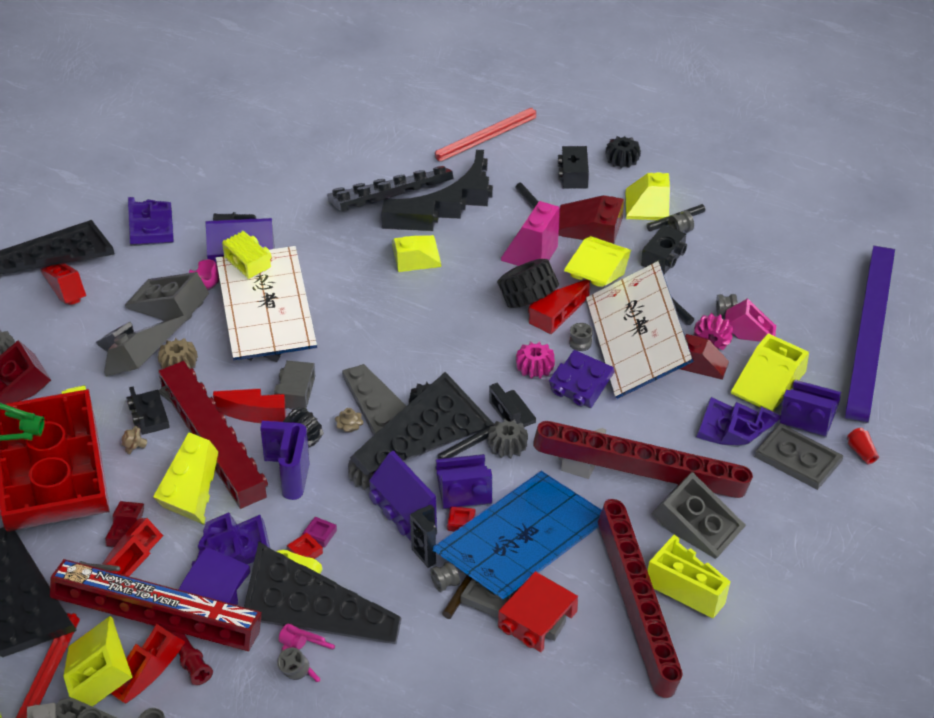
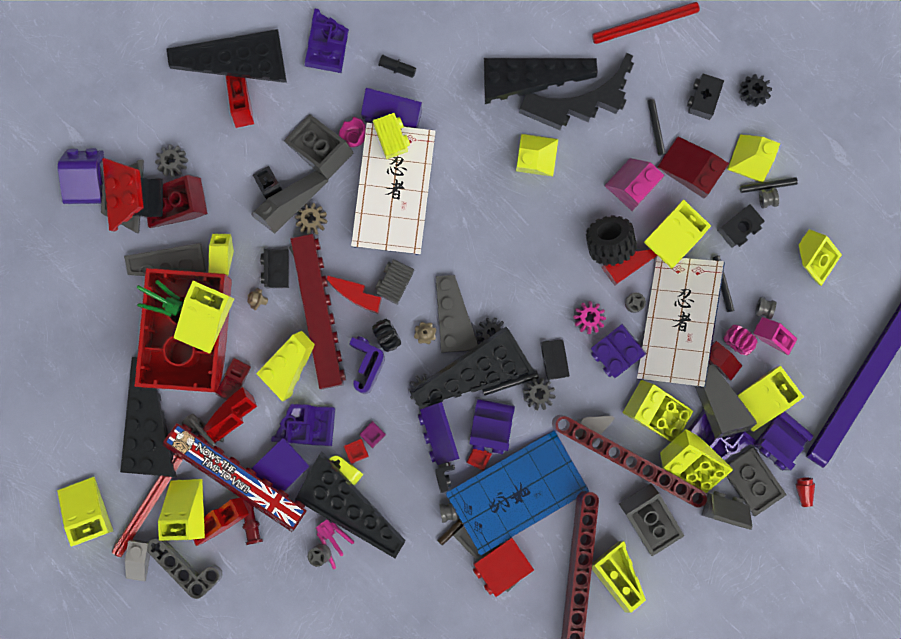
camera: 15 degrees right, 40 degrees up
(72, 419) = (202, 316): none -> neon yellow slope
(653, 418) = (657, 411): none -> neon yellow slope
(721, 440) = (694, 461): none -> neon yellow slope
(723, 387) = (723, 407): none -> dark grey slope
(759, 250) = (818, 255): none -> neon yellow slope
(782, 477) = (727, 510): none -> dark grey slope

